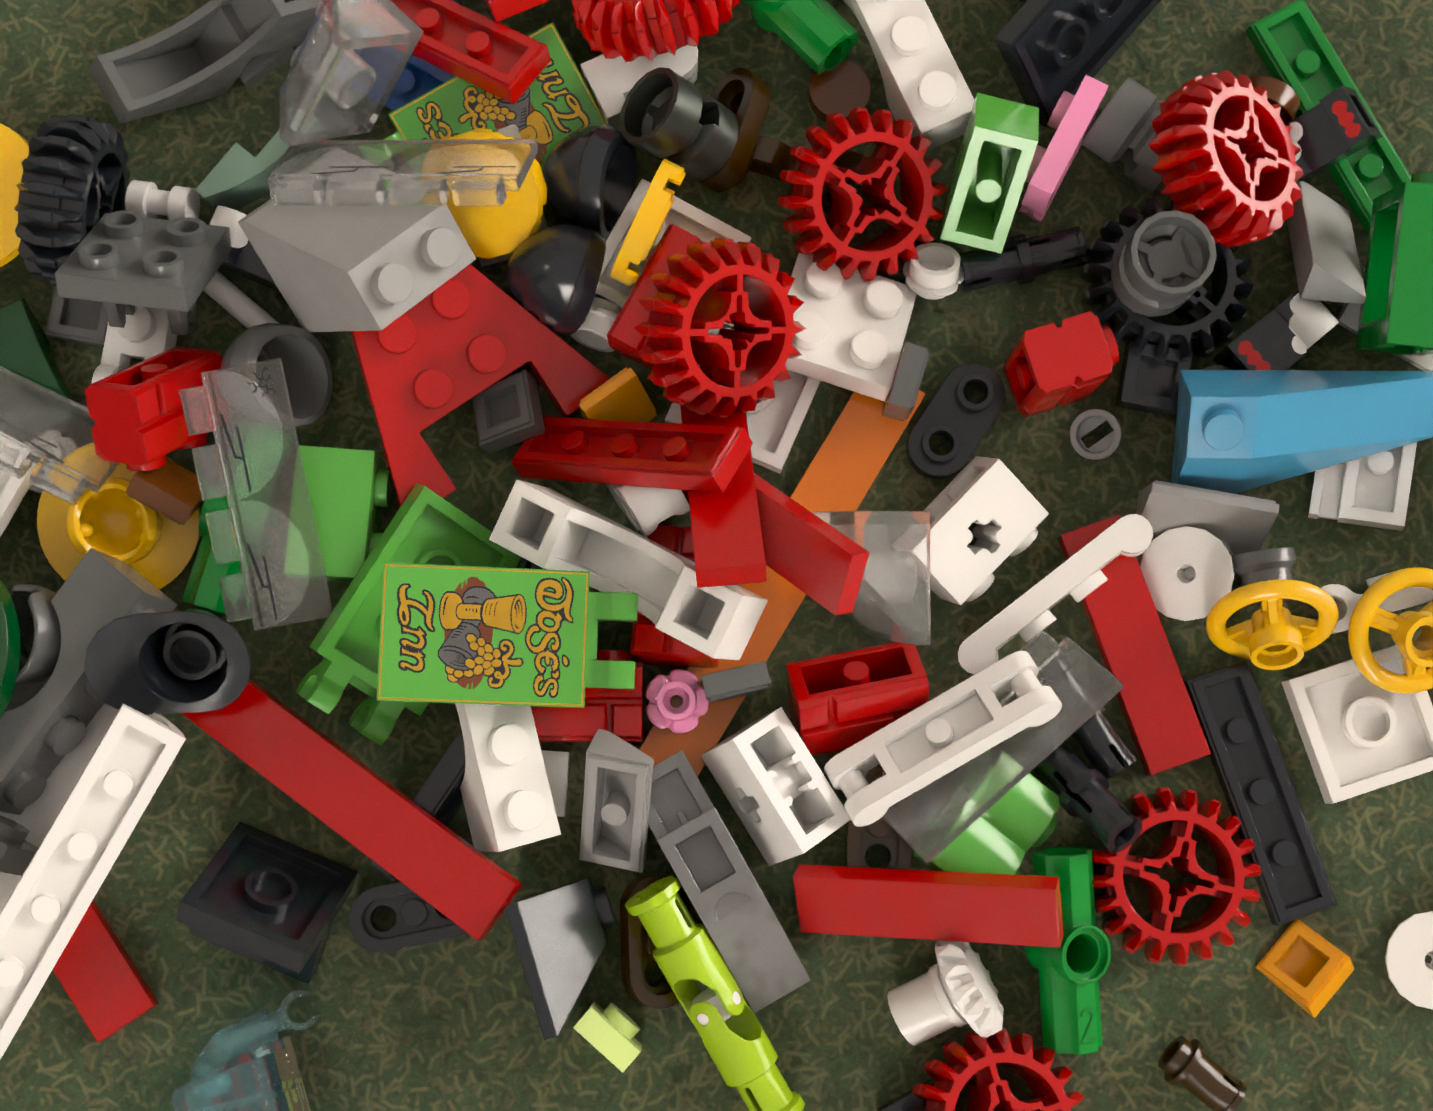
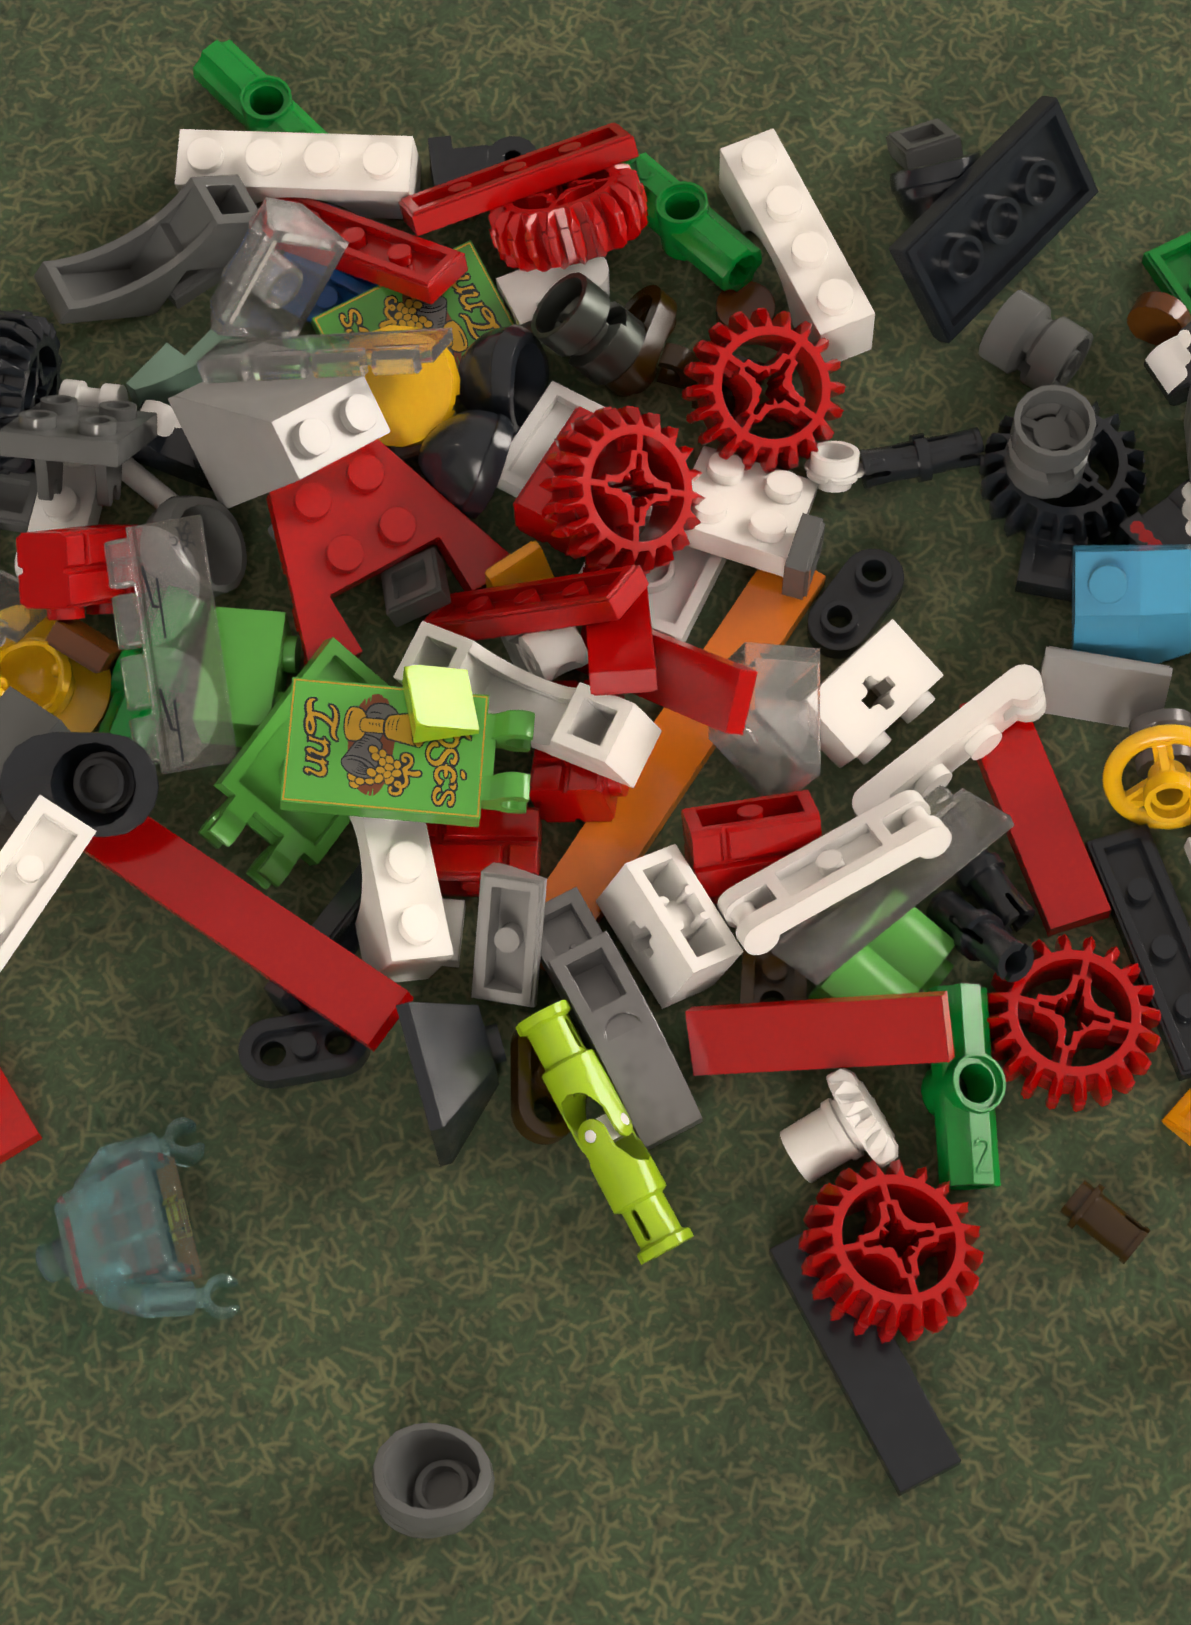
camera: 10 degrees right, 15 degrees down
(267, 901) = (157, 1036): black bracket -> none
(539, 589) = (439, 702): none -> slope
(597, 324) = (499, 515): white plate -> none
(610, 1033) = (497, 1164): yellowish green plate -> none
(647, 223) = (553, 404): yellow tile -> none
(678, 719) = (572, 863): bright pink plate -> none
(736, 682) = (631, 826): dark grey tile -> none
(990, 172) = (885, 370): bright green brick -> none
(1049, 166) = (951, 366): bright pink plate -> none
(1060, 363) = (953, 539): red brick -> none
(1088, 423) = (988, 603): flat silver hinge -> none
(1187, 572) = (1082, 738): white piece -> none
(1227, 157) = (1113, 351): red gear -> none

